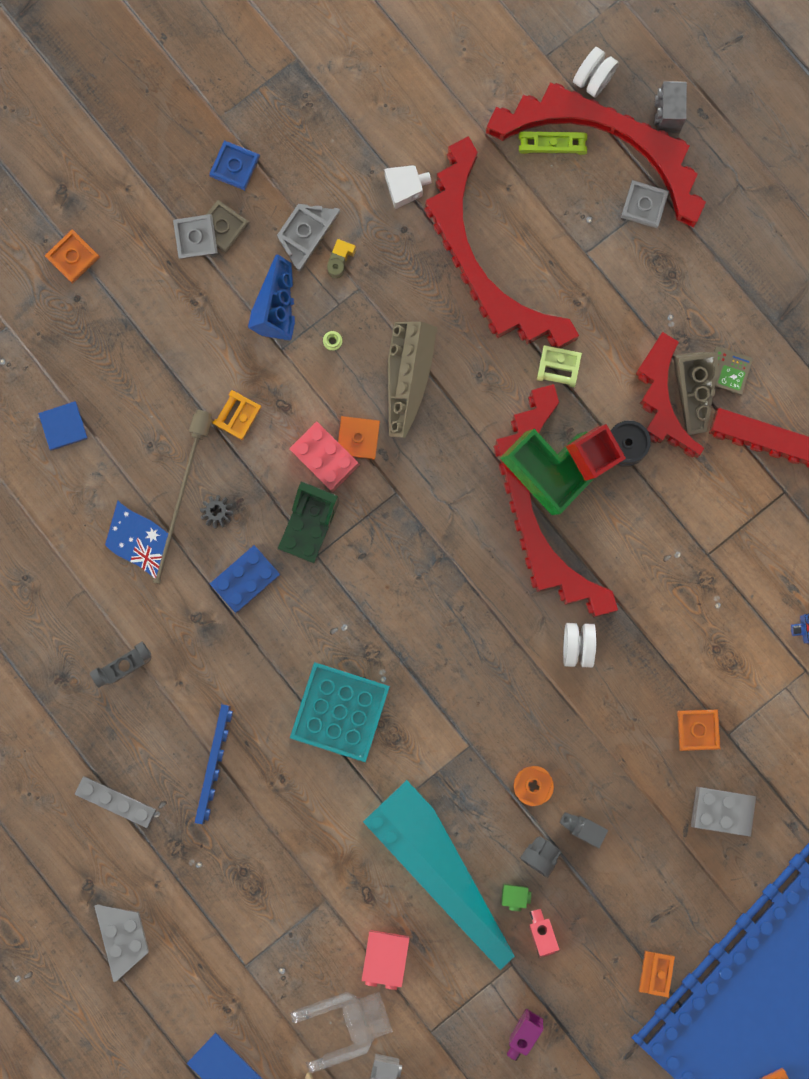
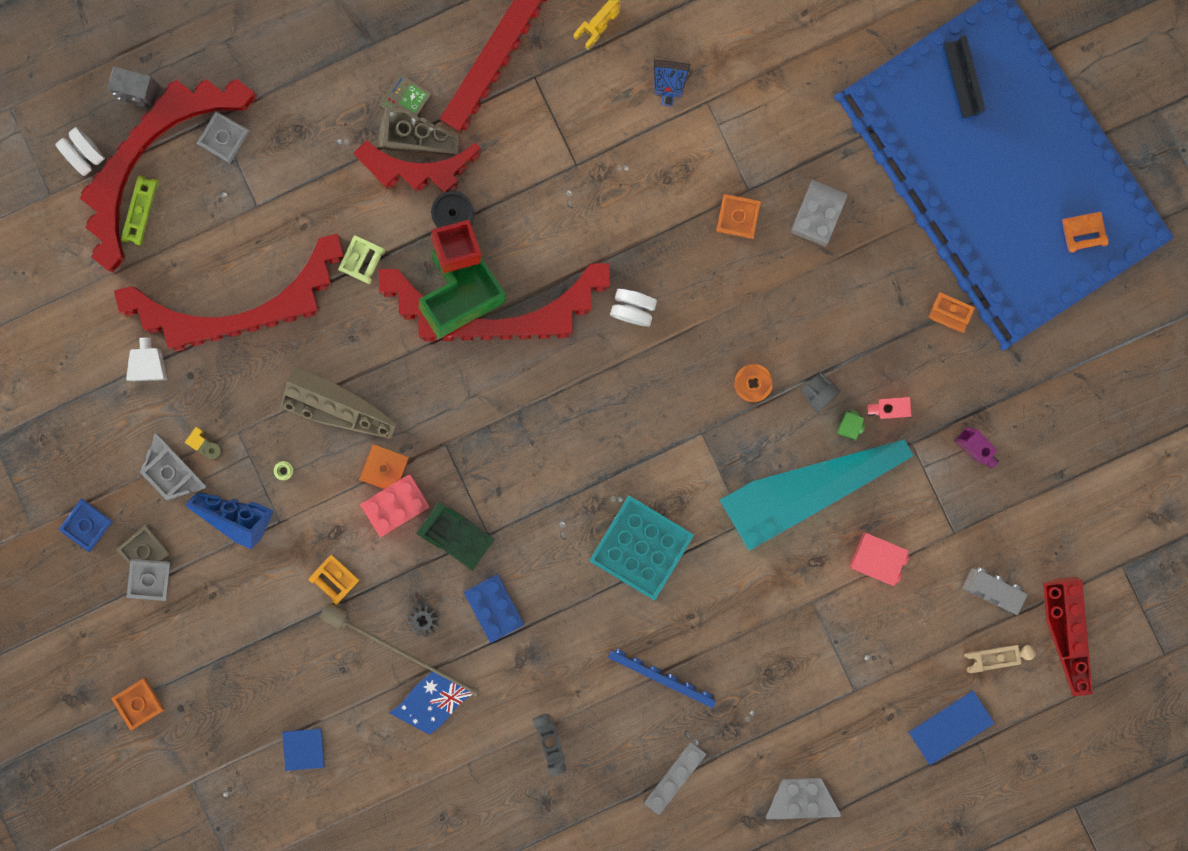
camera: 75 degrees left, 5 degrees up
(364, 1018) = (926, 592): clear plate -> none
(584, 829) = (805, 346): dark grey hinge -> none

